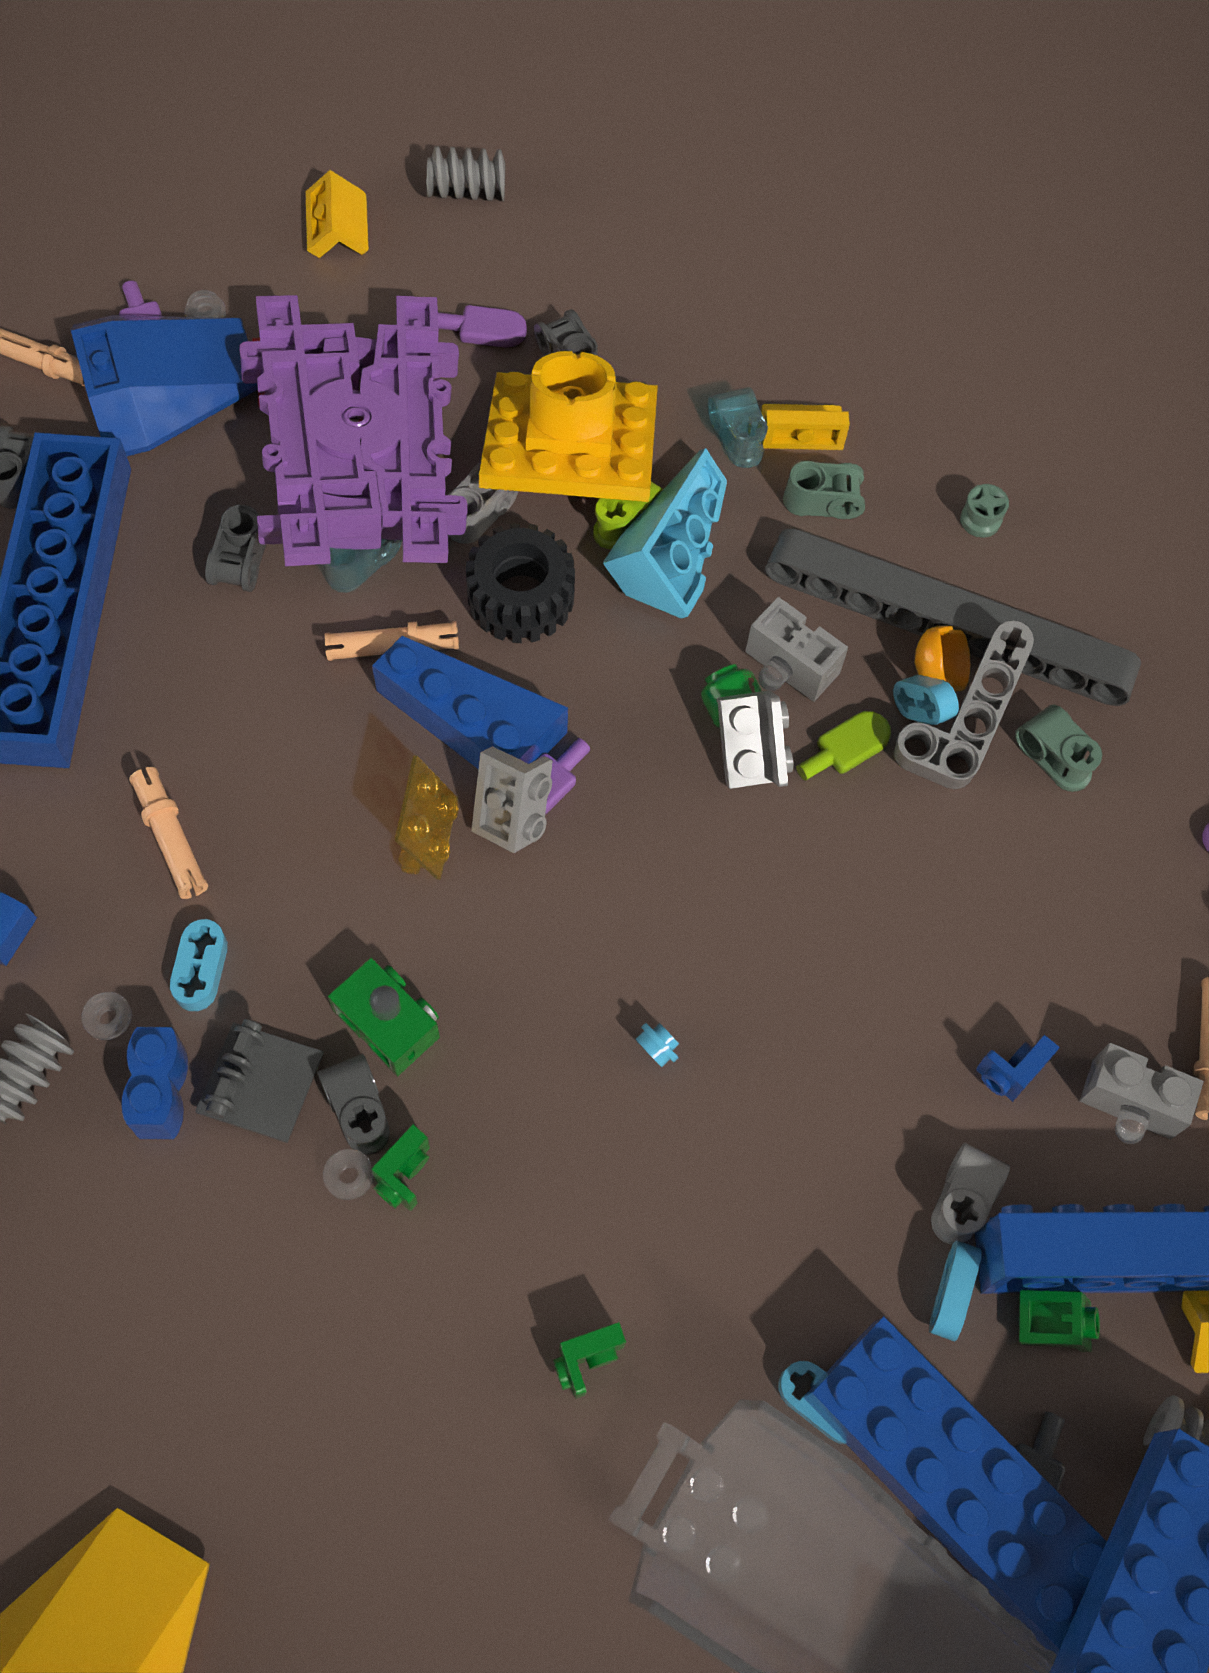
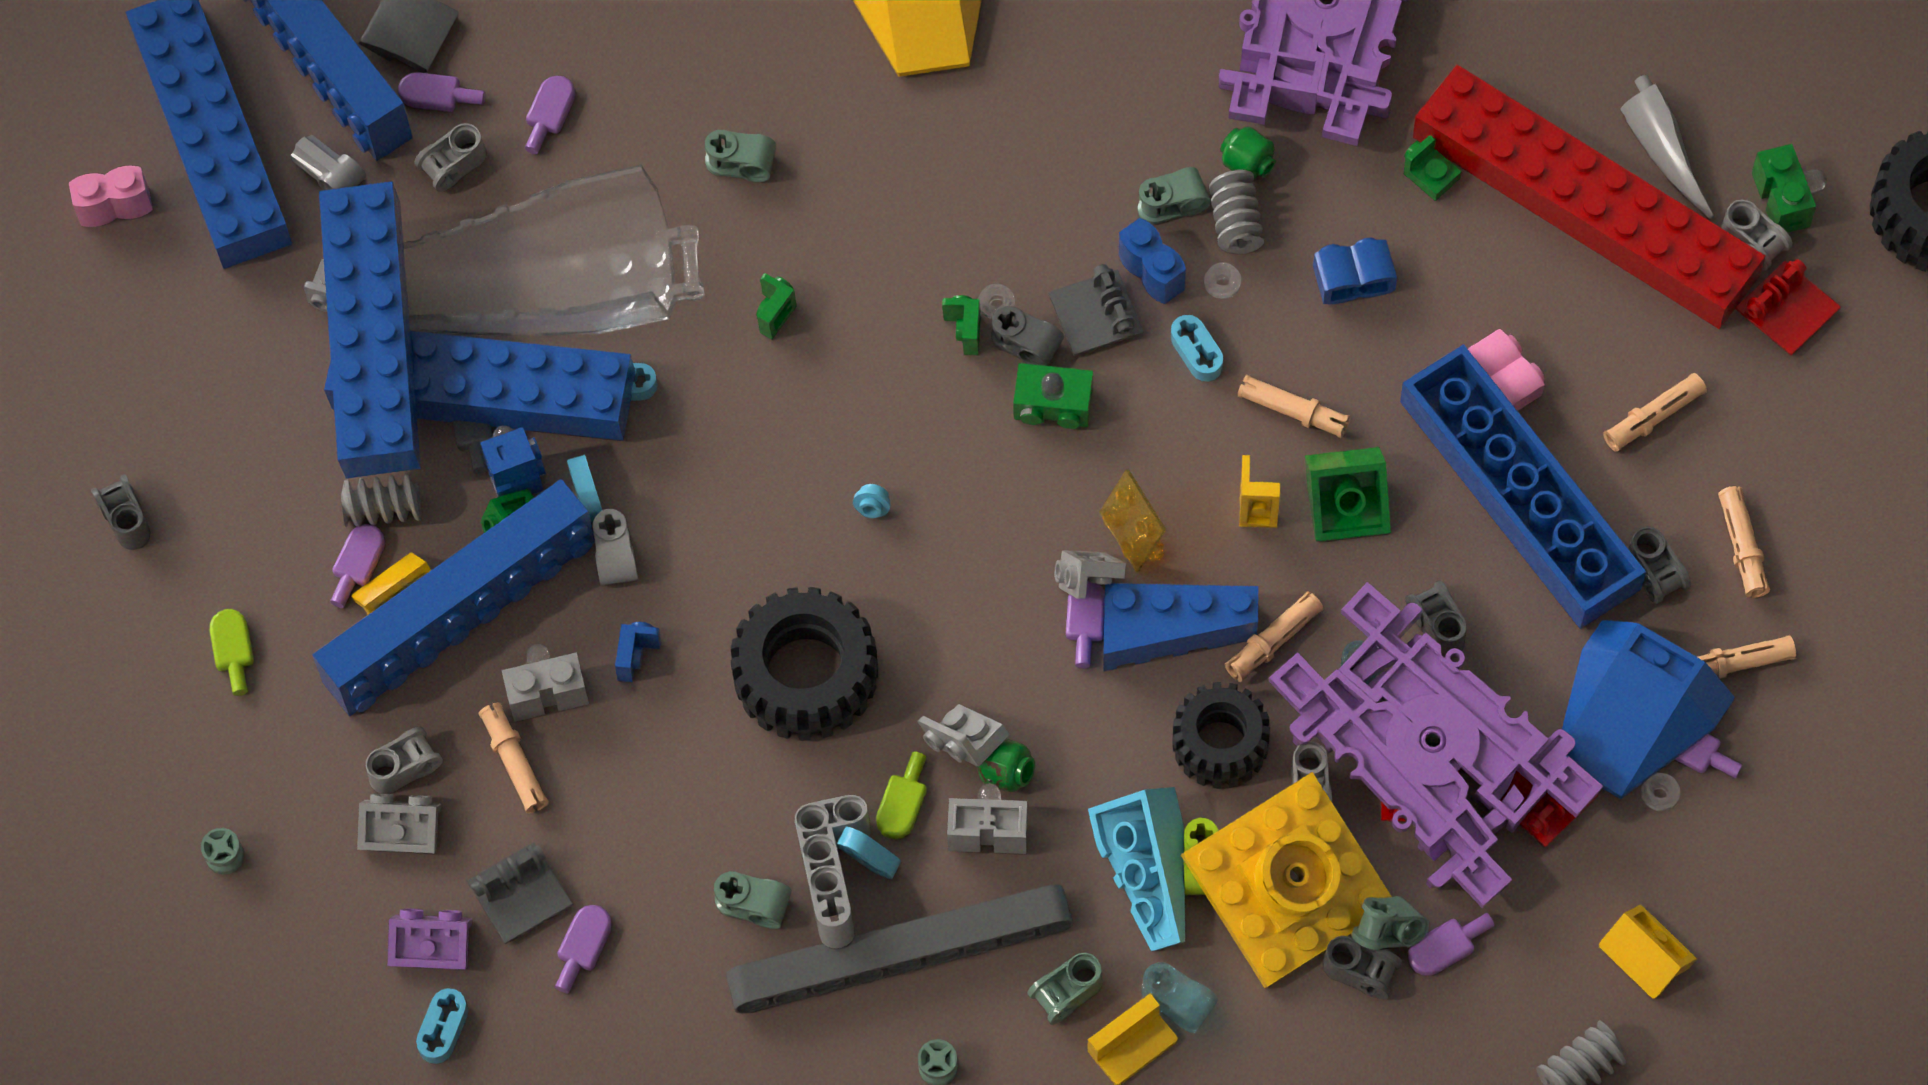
camera: 150 degrees right, 0 degrees up
(58, 1143) = (1175, 195): none -> sand green piece
(200, 713) = (1348, 493): none -> green slope
(298, 757) = (1257, 500): none -> yellow panel
(470, 1589) = (741, 156): none -> sand green piece
(520, 345) = (1389, 924): none -> sand green piece
(879, 864) = (797, 618): none -> black tyre
(944, 655) = (878, 901): light orange hair -> none
(1031, 1372) = (513, 461): none -> blue piece

